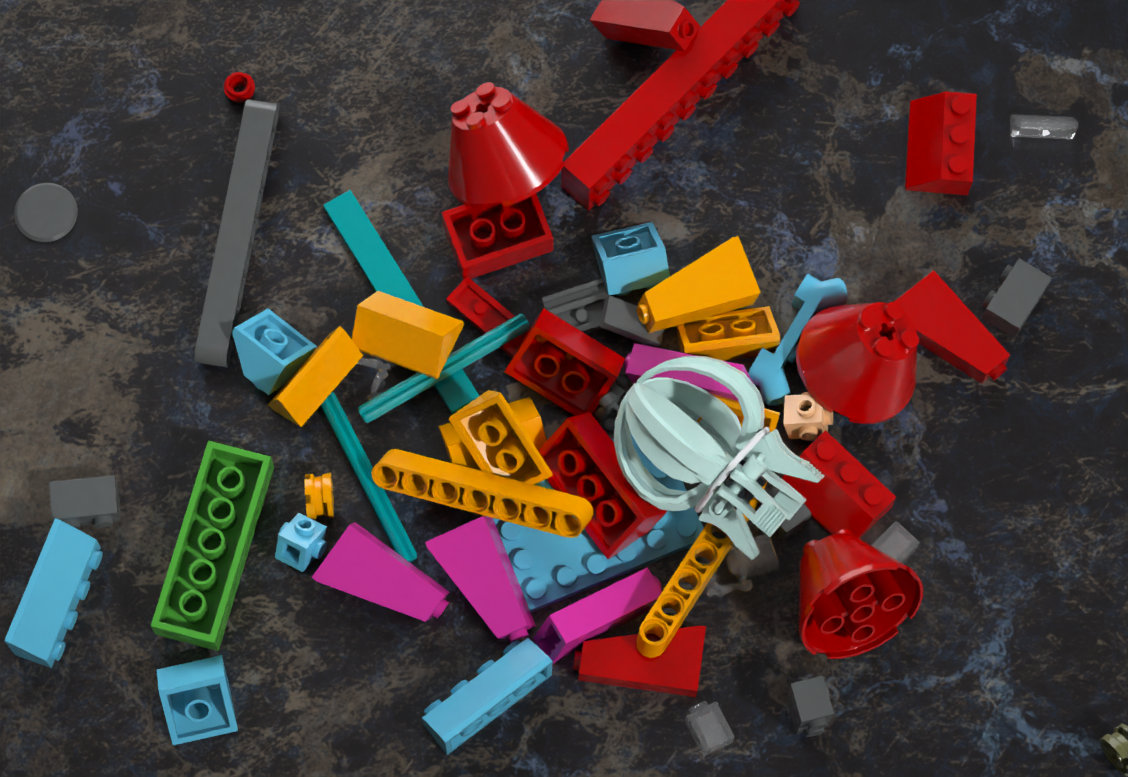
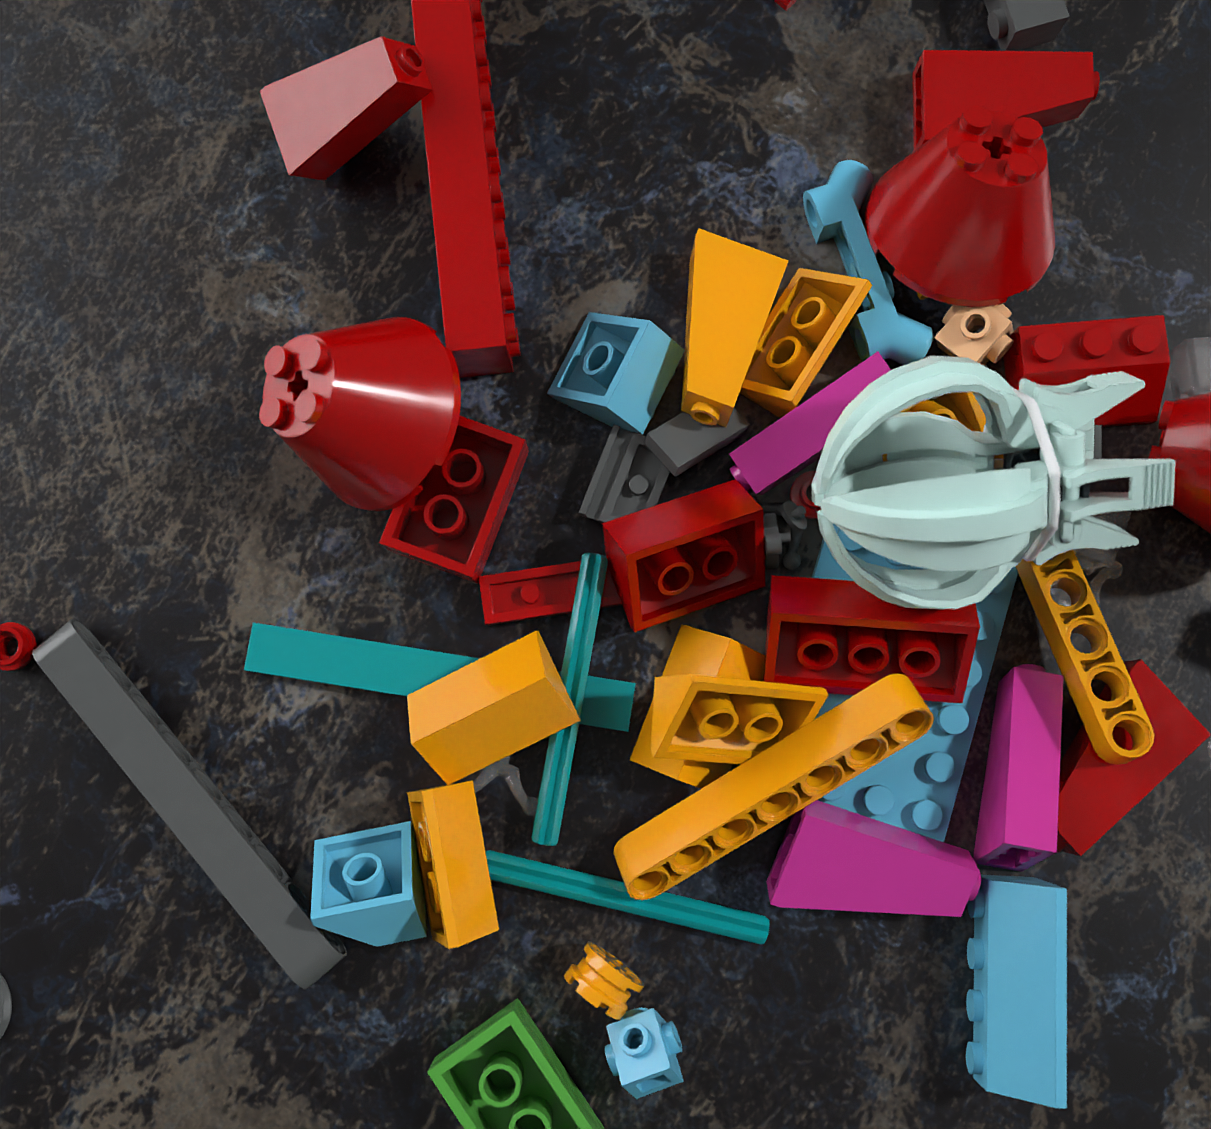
camera: 45 degrees left, 10 degrees up
(378, 574) = (766, 989): dark pink slope -> none

